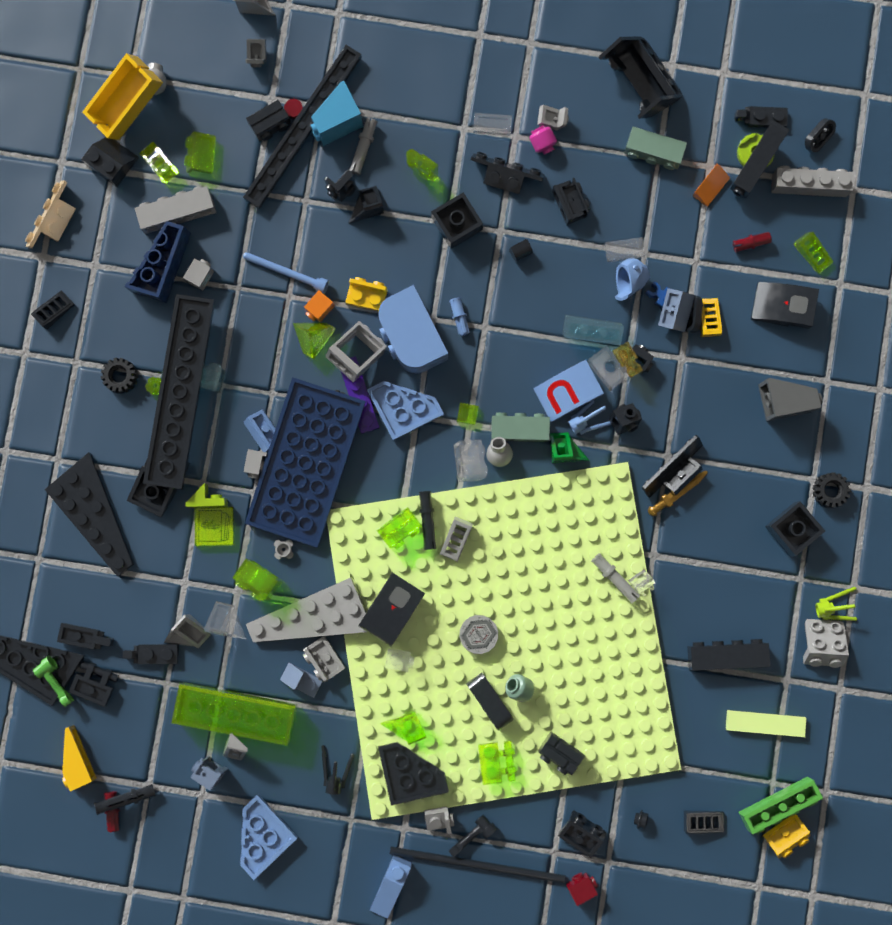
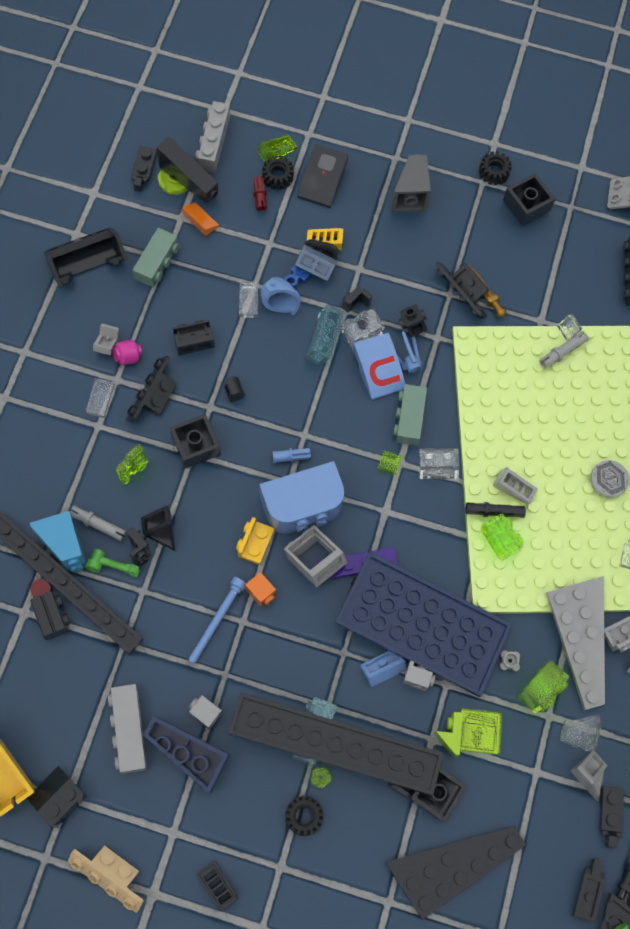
camera: 90 degrees left, 15 degrees down
(166, 171) = (85, 734): clear neon green slope -> none
(200, 152) = (69, 694): clear neon green bracket -> none
(313, 337) = (291, 600): clear neon green slope -> none
(326, 153) = (97, 560): none -> bright green brick
(391, 609) = (583, 554): black slope -> none
(403, 408) = (377, 521): medium blue plate -> none
(499, 452) = (433, 436): light grey piece -> none
(565, 449) = (436, 380): green slope -> none
(626, 357) = (355, 308): clear yellow plate -> none
(785, 246) = (278, 164): none -> black tyre
(820, 135) = (171, 124): black plate -> none
(825, 609) = (601, 187): lime plant -> none

